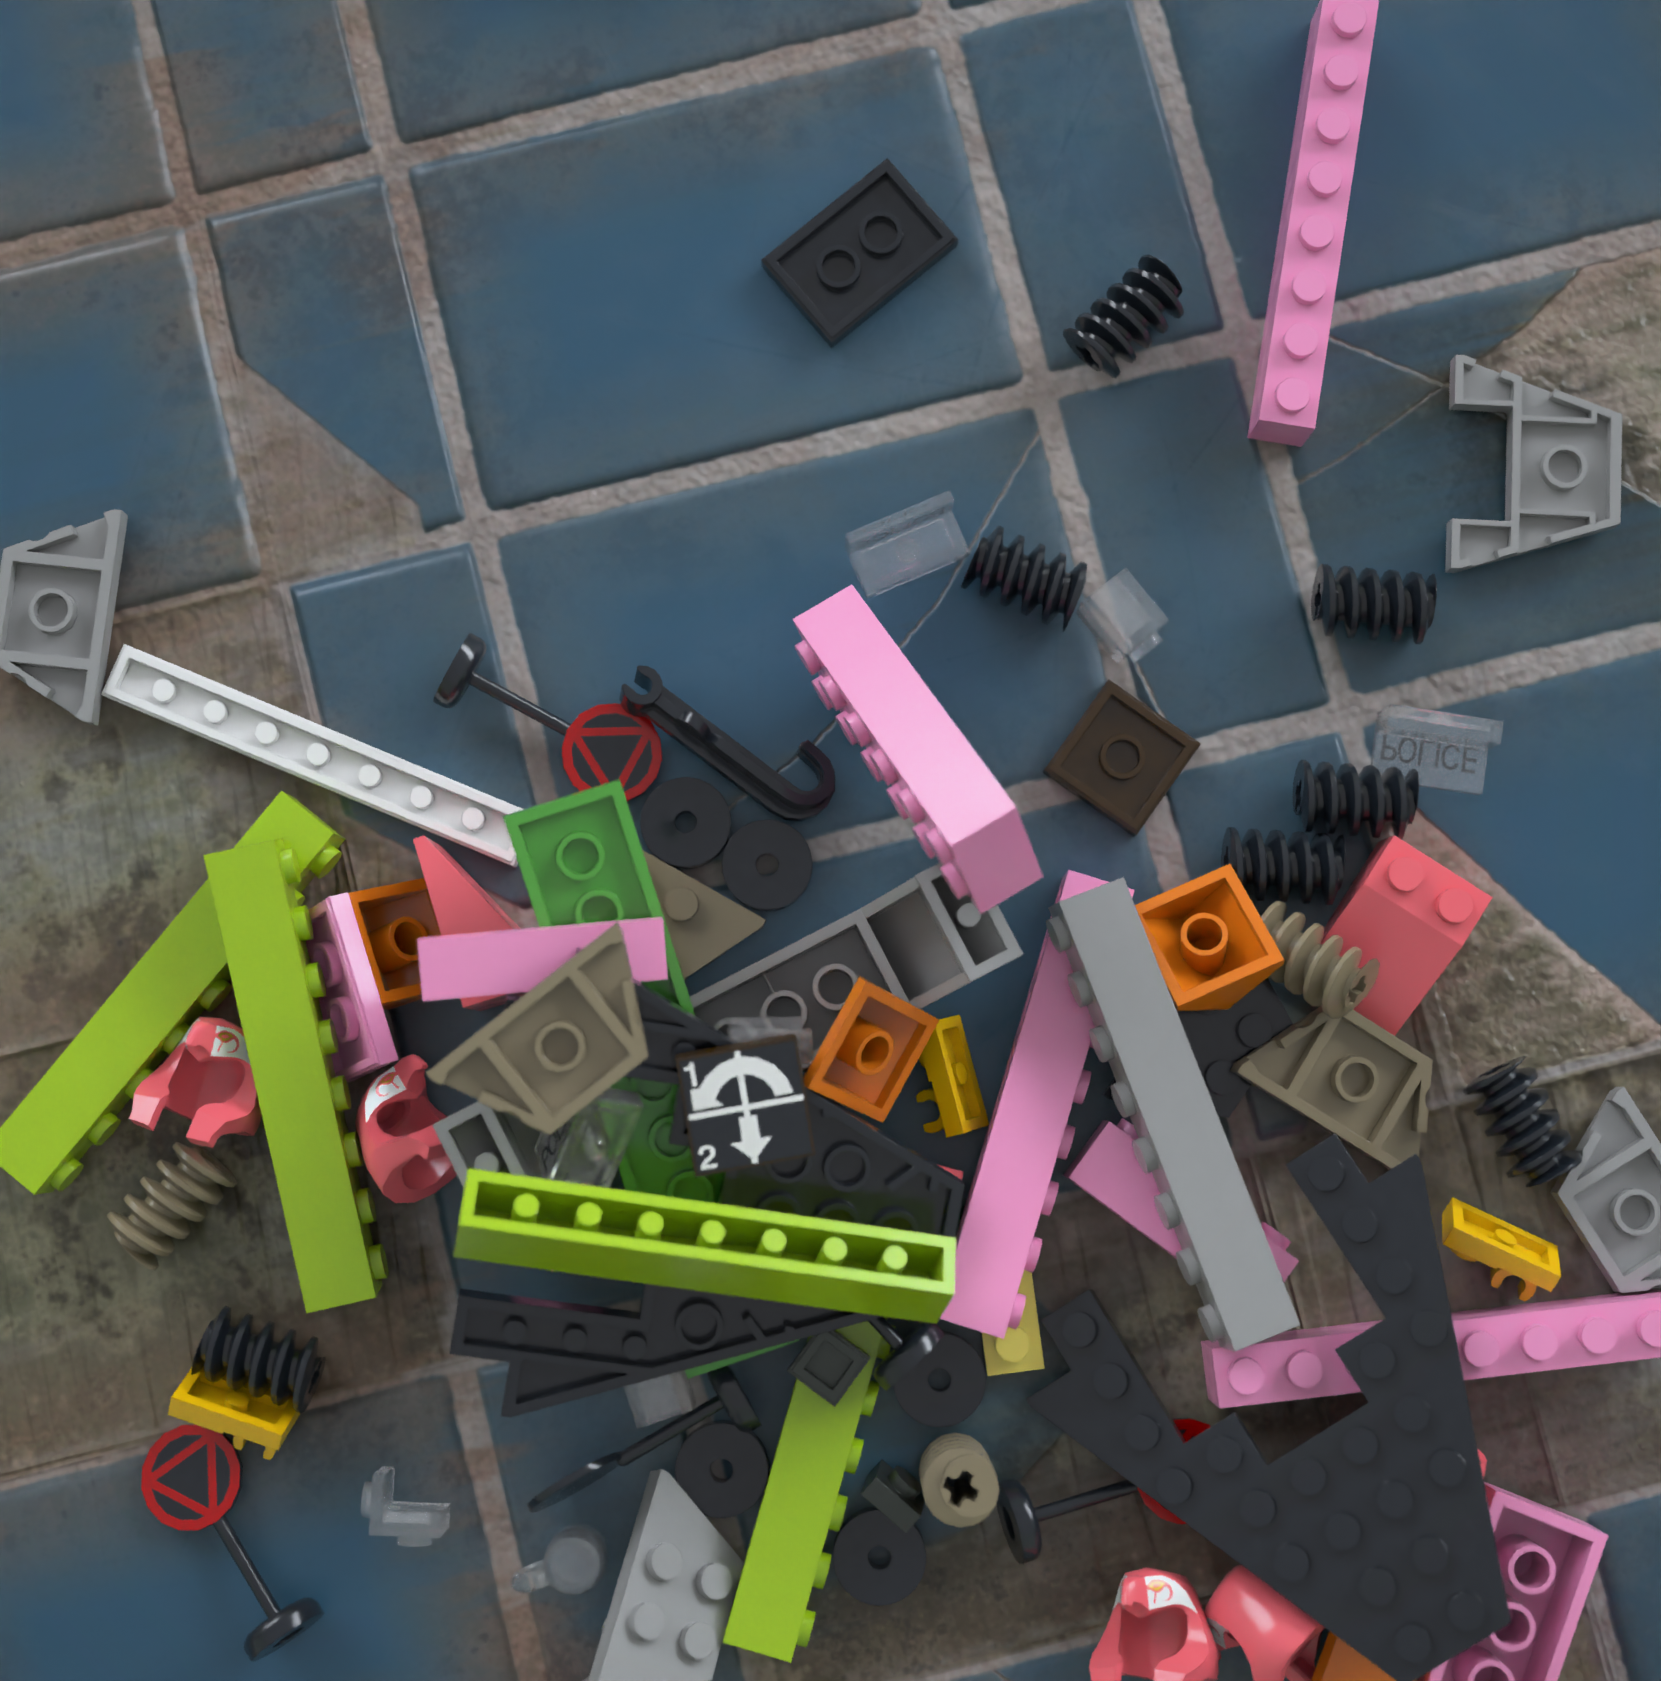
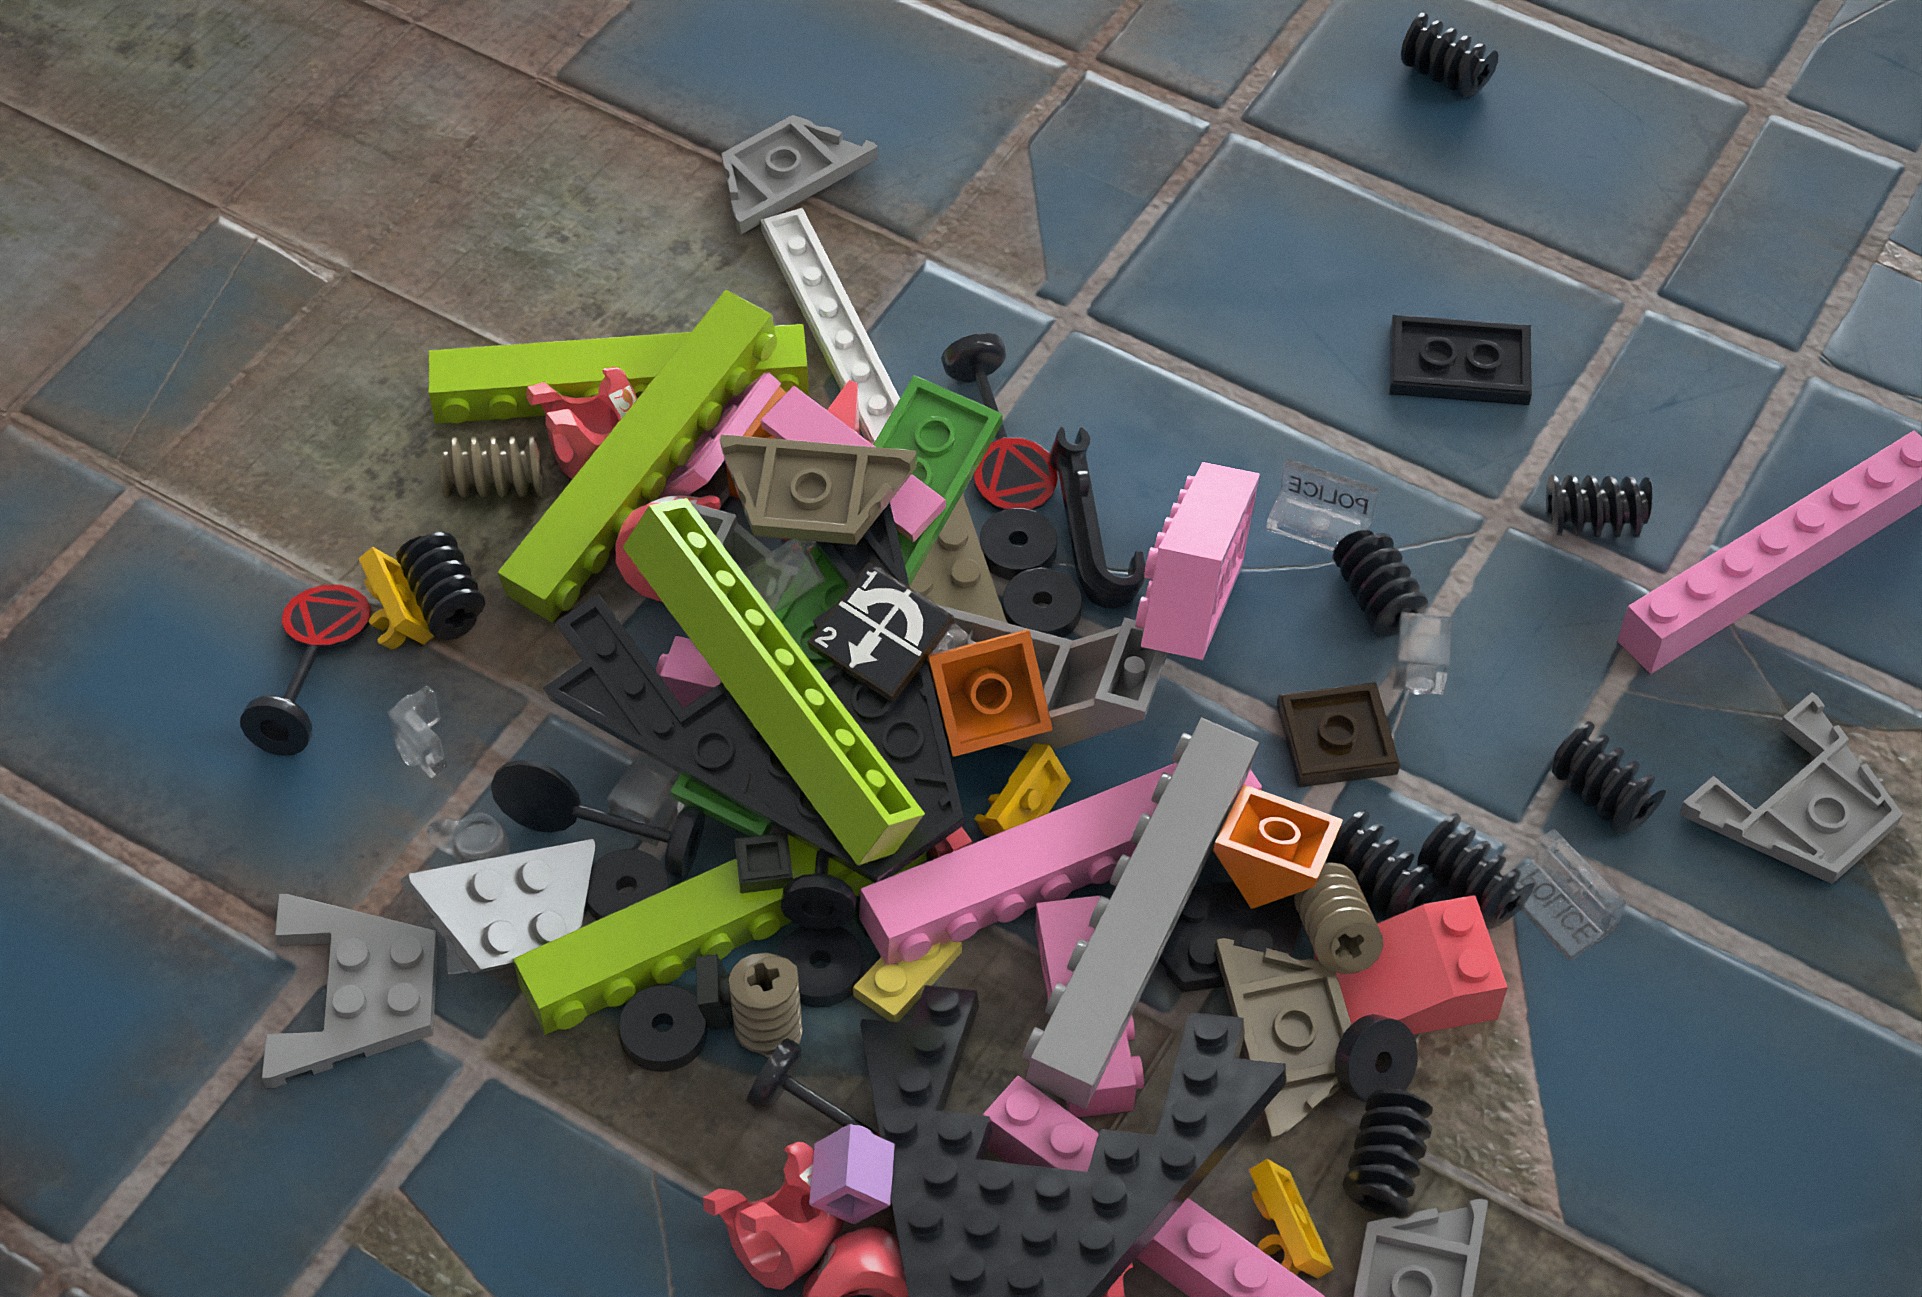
camera: 45 degrees right, 30 degrees down
(1187, 1569) = (852, 1174): none -> lavender brick
(1442, 1049) = (1359, 1048): none -> black piece

